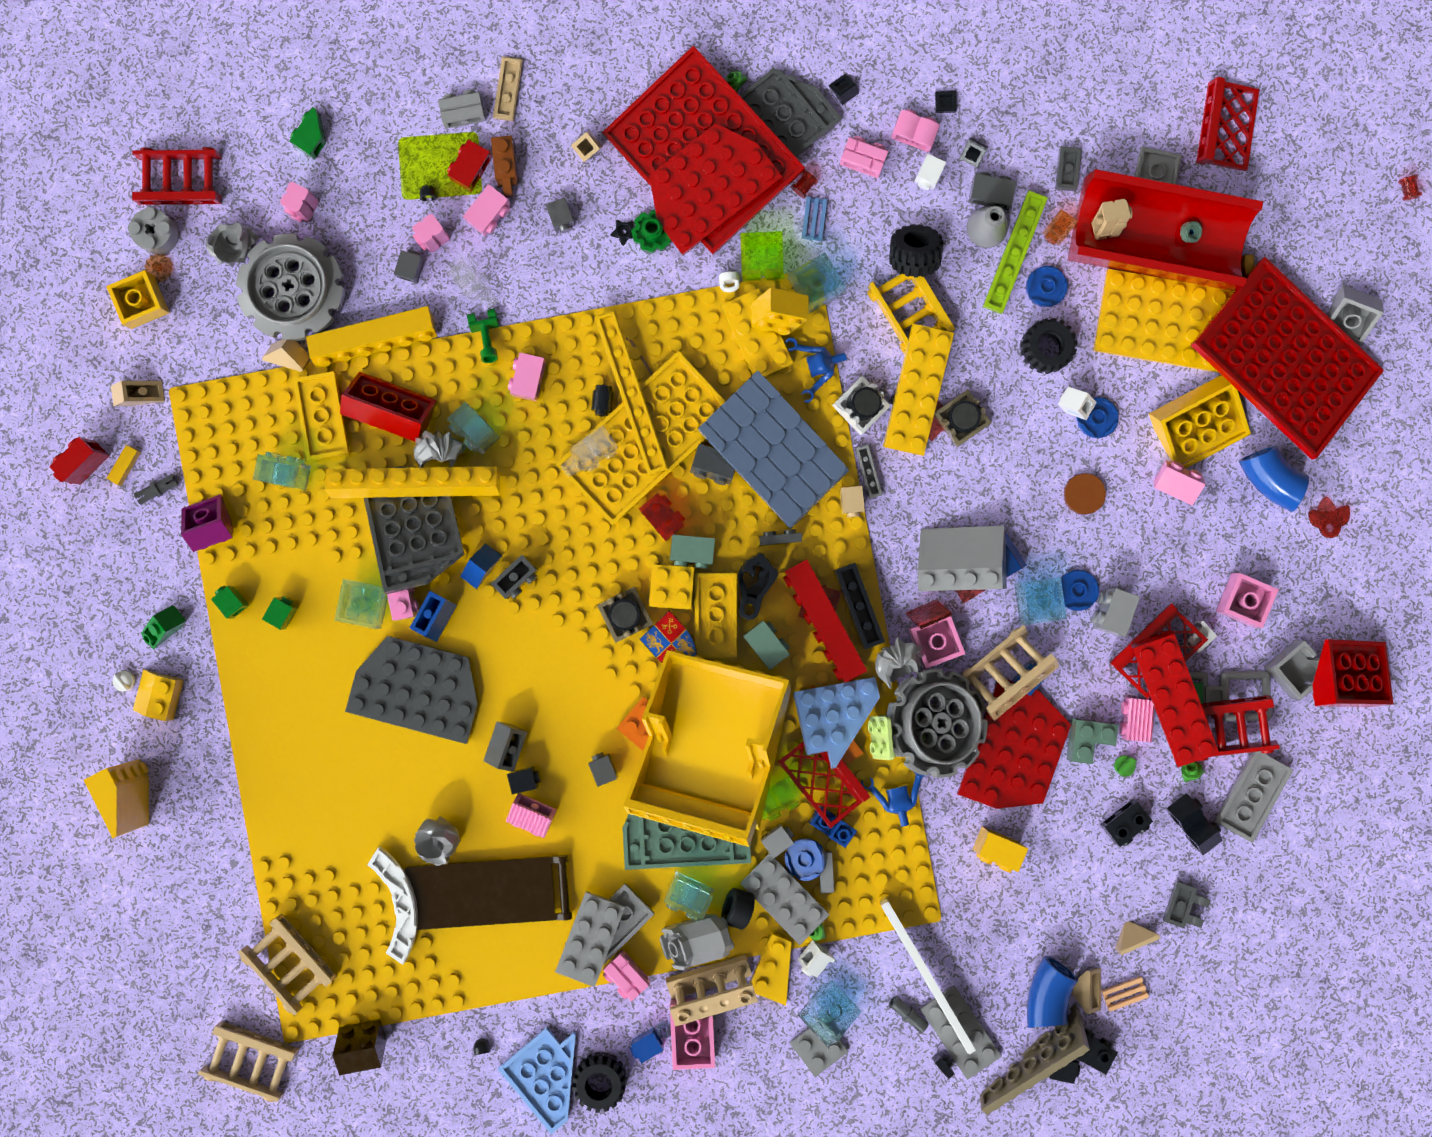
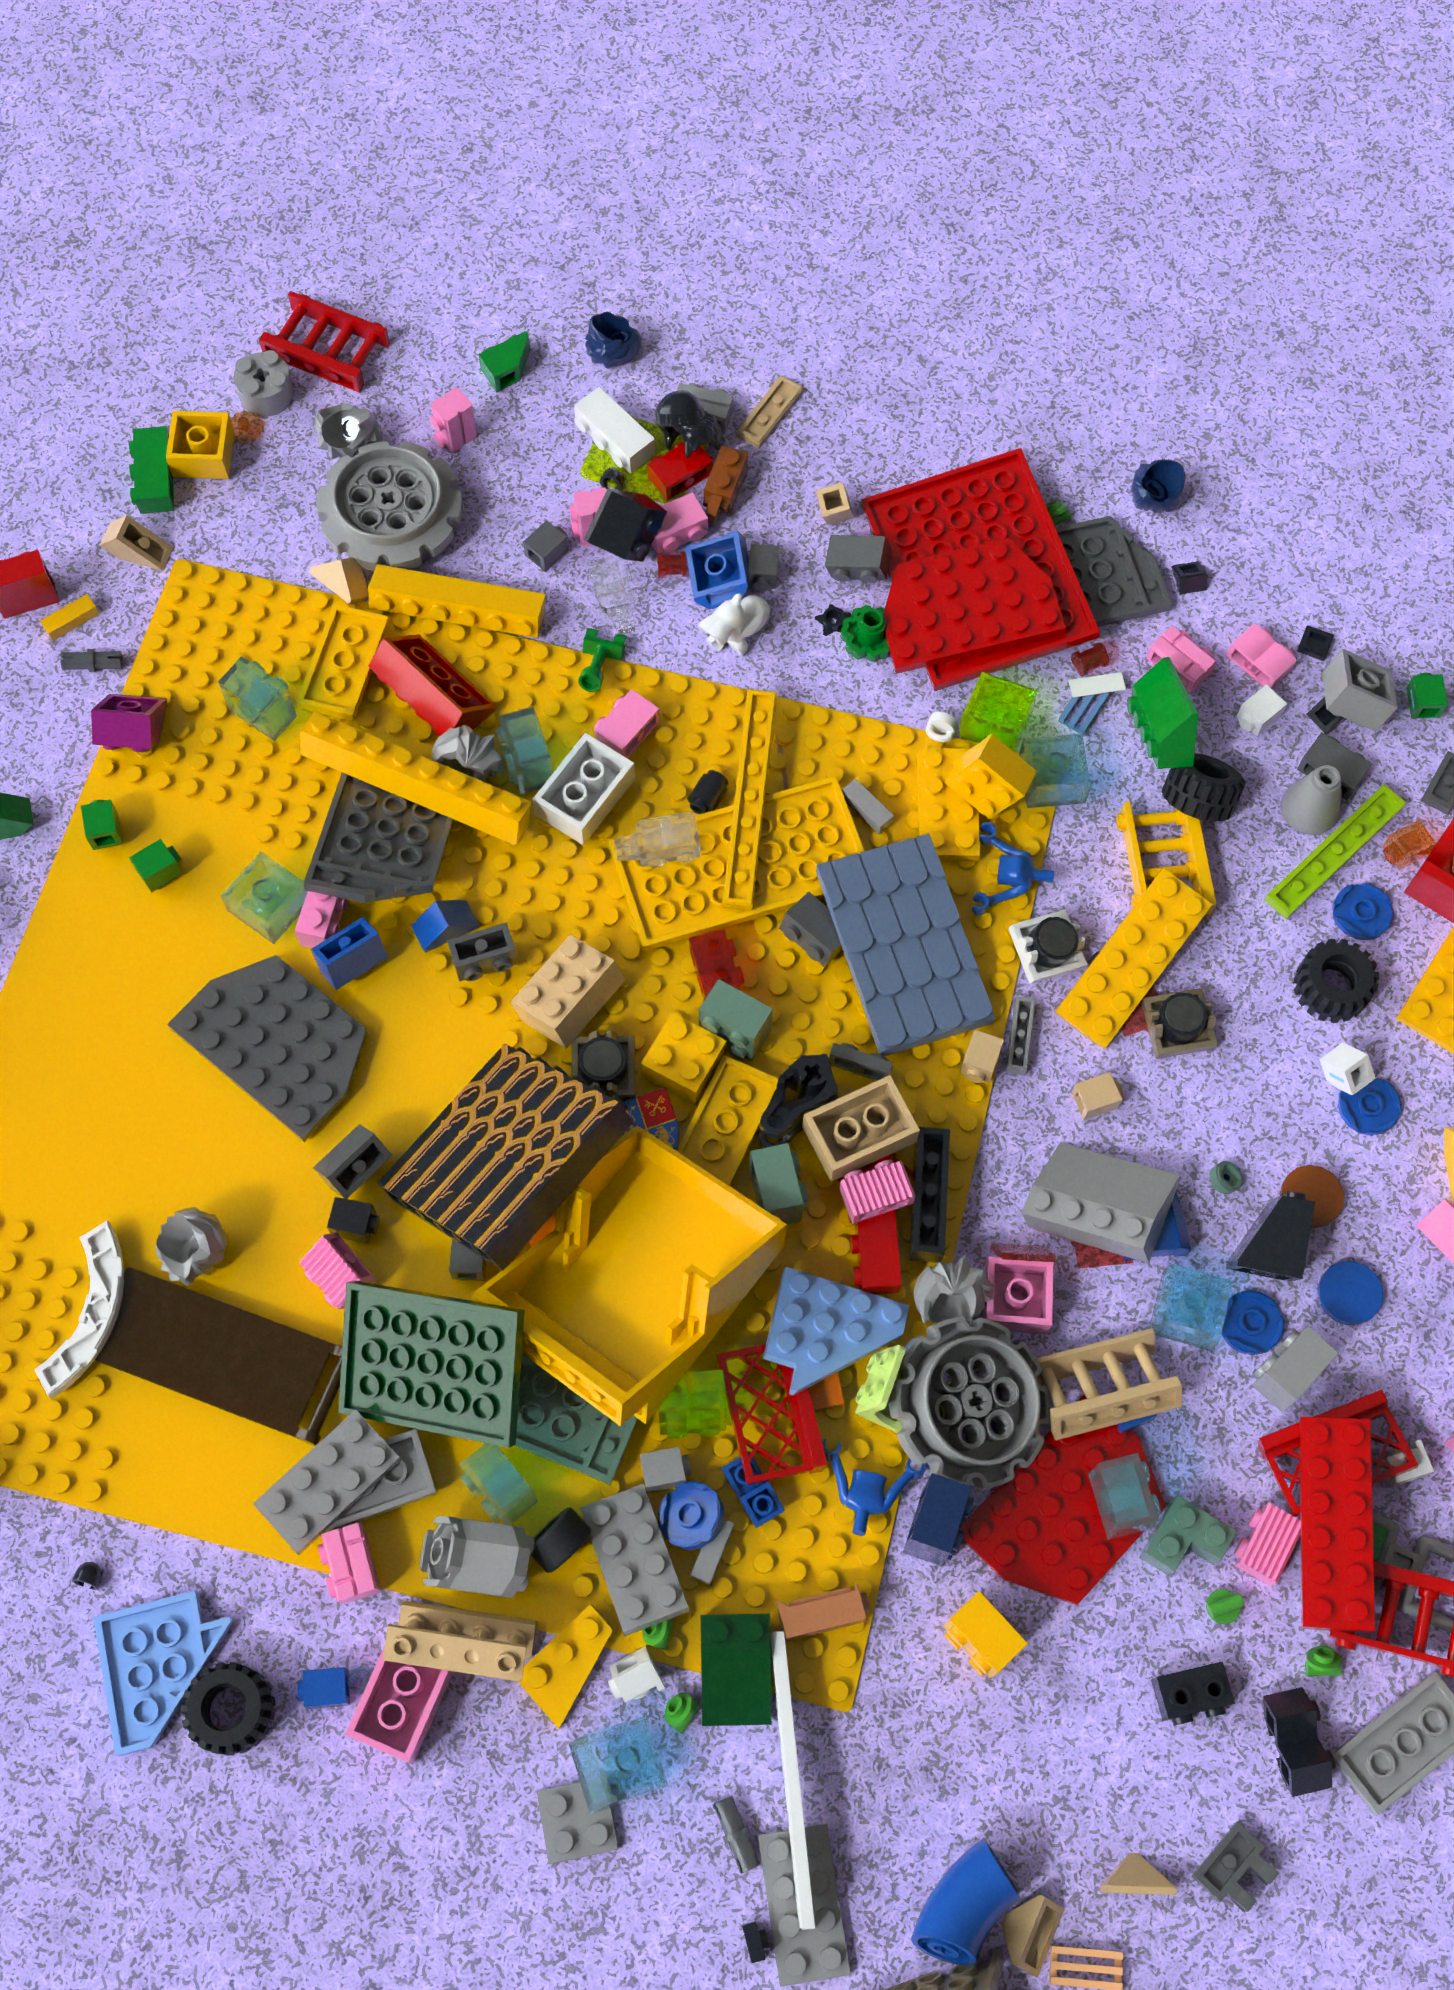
camera: 20 degrees right, 20 degrees down
(120, 339) = (150, 472): none -> green brick
(374, 84) = (611, 340): none -> dark blue hair
(411, 157) = (614, 430): none -> white brick
(457, 130) = (684, 415): none -> black hair
(458, 232) = (626, 524): none -> black slope
(499, 241) = (671, 564): none -> clear red bush
(523, 436) = (584, 788): none -> white brick
(533, 234) = (718, 569): none -> blue slope
(563, 268) = (735, 621): none -> white animal
(580, 578) = (568, 991): none -> tan brick
(598, 707) = (506, 1154): none -> panel
(618, 851) = (432, 1362): none -> plate
(621, 181) = (858, 558): none -> dark grey brick
(707, 361) = (867, 806): none -> light grey piece
(797, 30) = (1158, 485): none -> dark blue hair
(802, 589) = (860, 1128): none -> tan brick
(816, 201) = (1097, 684): none -> white sticker
(828, 623) = (876, 1190): none -> bright pink brick
(847, 964) = (681, 1711): none -> bright green plate
(869, 930) = (736, 1669): none -> dark green slope
(872, 214) = (1164, 716): none -> green slope
(904, 878) = (823, 1612): none -> nougat window
(932, 490) = (1097, 1095): none -> tan brick
(948, 801) = (937, 1520): none -> dark blue brick
(989, 131) = (1359, 690): none -> light grey brick
(1029, 506) = (1226, 1177): none -> sand green tile
(1032, 110) = (1426, 696): none -> green brick
(1048, 738) = (1124, 1496): none -> clear light blue brick
(1075, 538) = (1277, 1239): none -> black slope
(1129, 544) = (1350, 1293): none -> blue tile

